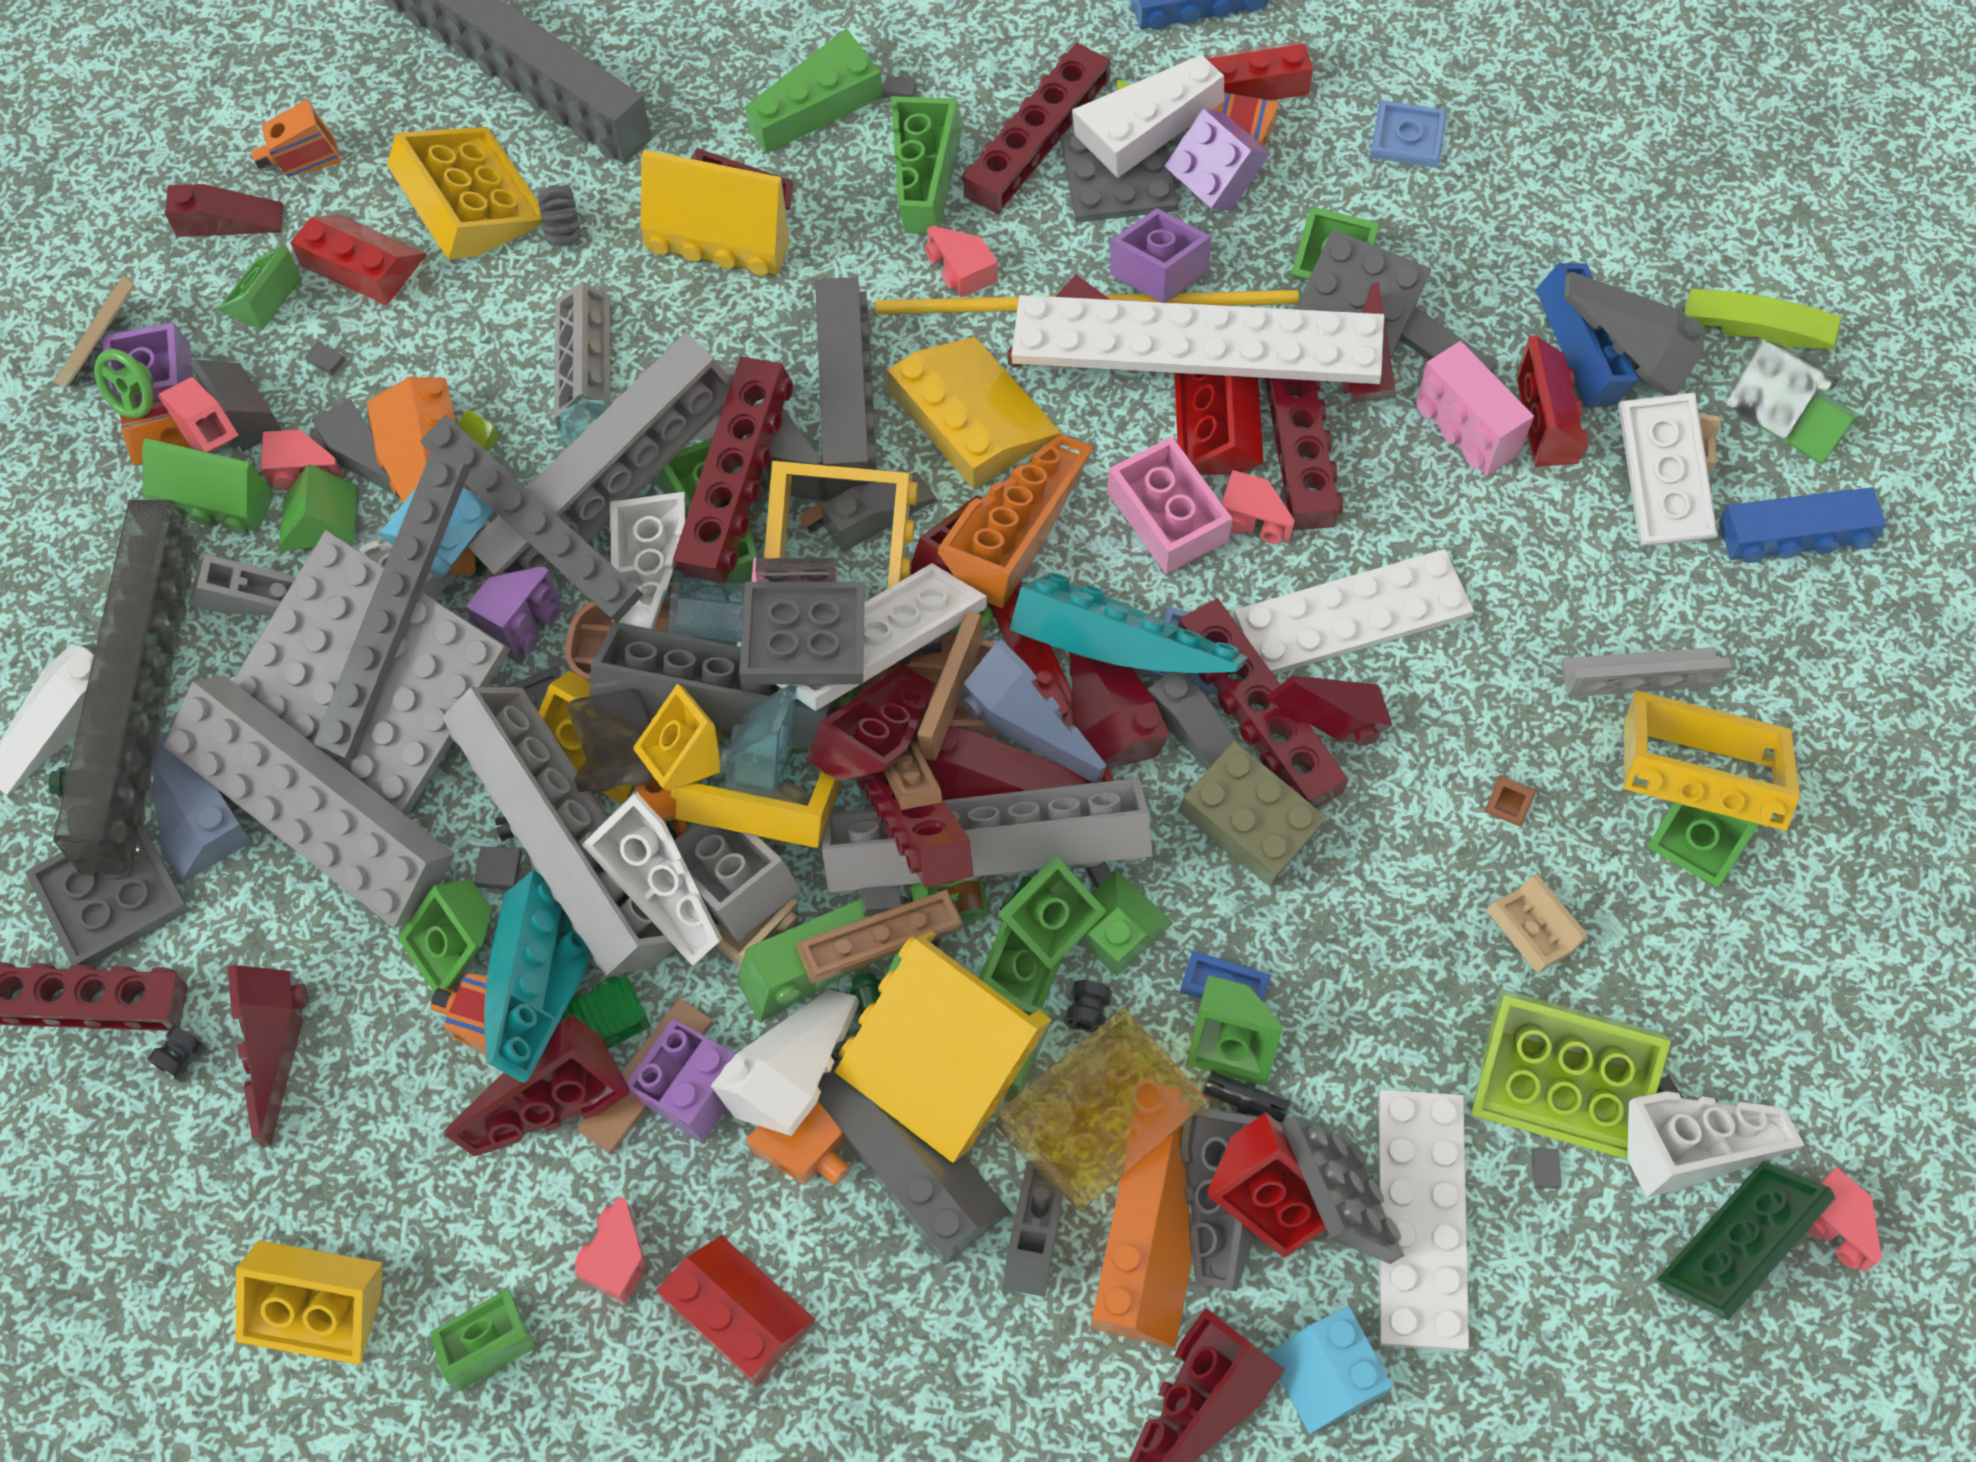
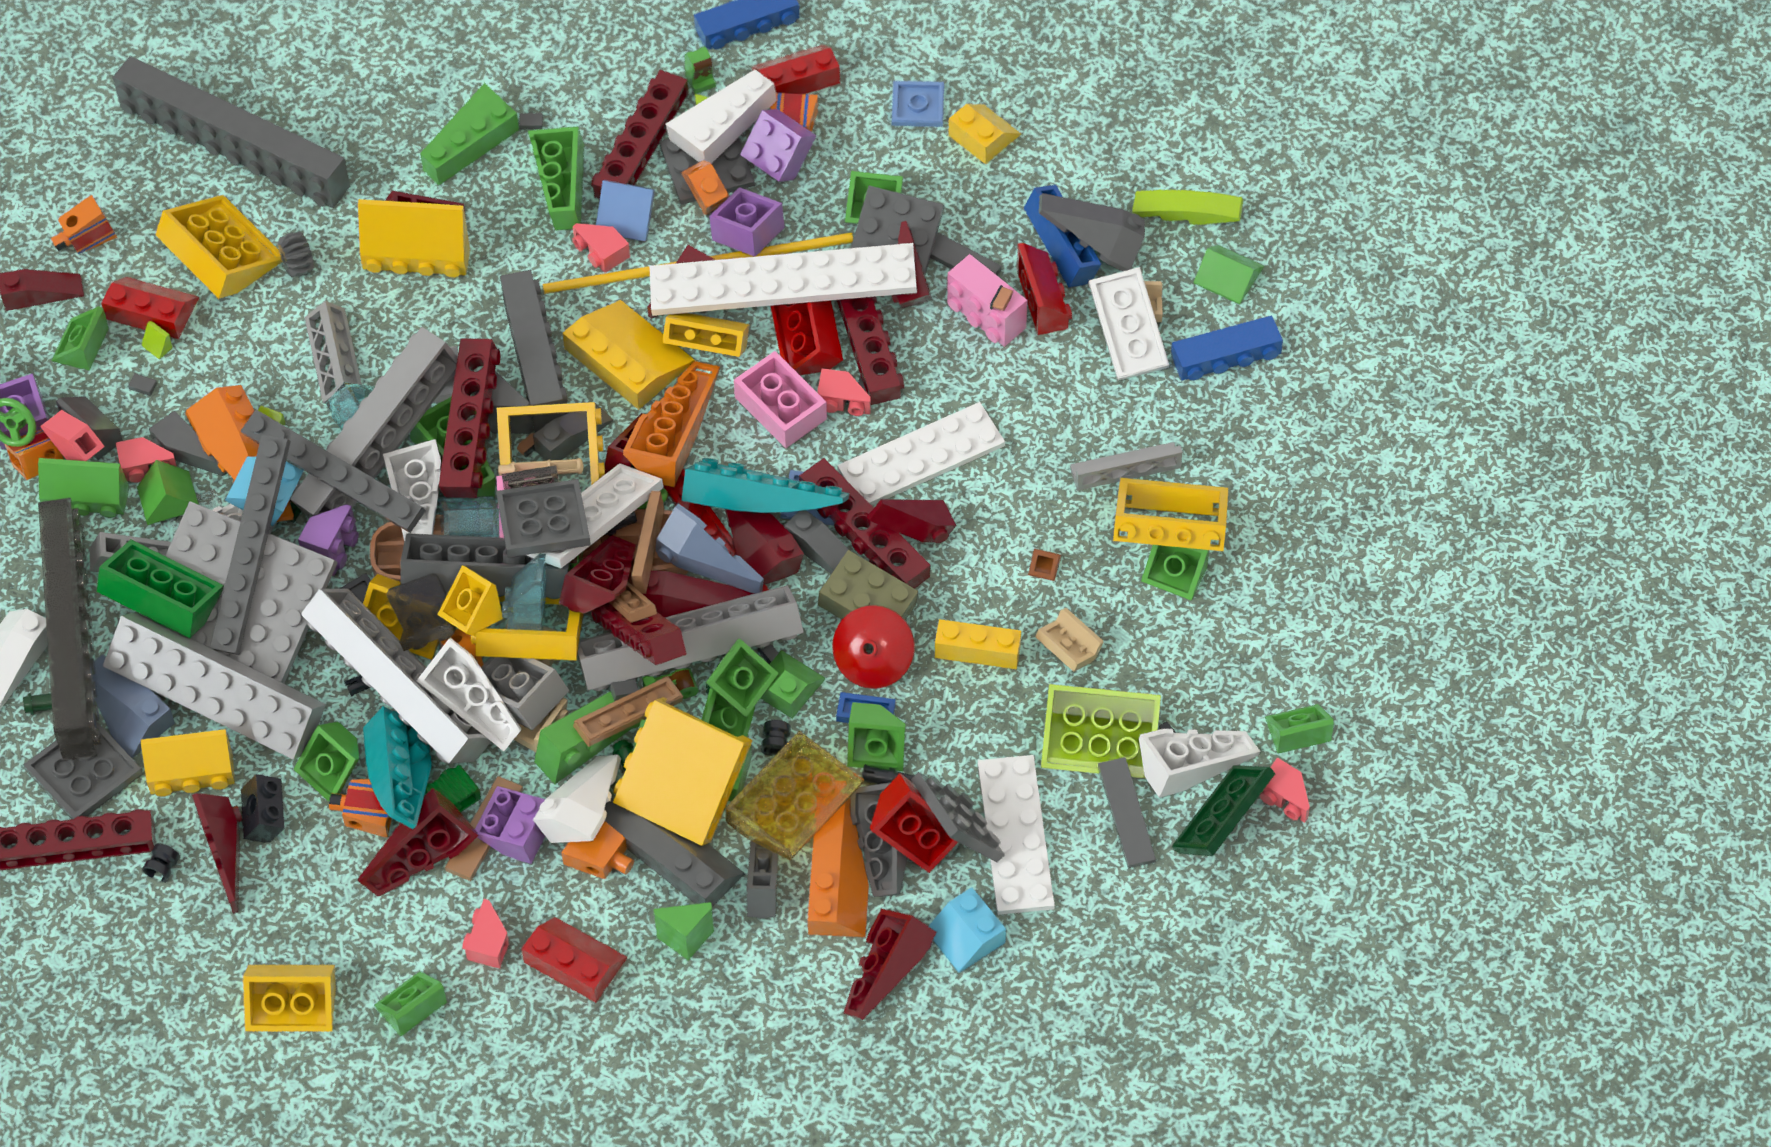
camera: 10 degrees left, 5 degrees down
(246, 909) = (188, 762): none -> yellow slope
(259, 647) = (159, 588): none -> green slope
(335, 995) = (262, 808): none -> black brick
(355, 303) = (156, 340): none -> lime slope
(497, 867) = (353, 713): dark grey tile -> none
(844, 556) = (563, 466): none -> tan piece
(906, 1296) = (684, 927): none -> bright green slope
(1002, 216) = (626, 209): none -> medium blue tile
(1081, 399) = (706, 333): none -> yellow brick
(1112, 200) = (705, 186): none -> orange torso
(1128, 50) = (699, 70): none -> bright green leg
(1272, 876) = (891, 642): none -> red dish
(1402, 909) = (977, 644): none -> yellow brick
(1488, 181) = (981, 131): none -> yellow slope
(1498, 409) = (1001, 298): none -> nougat piece
(1546, 1168) = (1093, 792): dark grey piece -> none
(1594, 1214) = (1126, 812): none -> dark grey tile
(1779, 388) = (1202, 253): clear smoke bracket -> none
(1870, 1116) = (1300, 728): none -> bright green slope

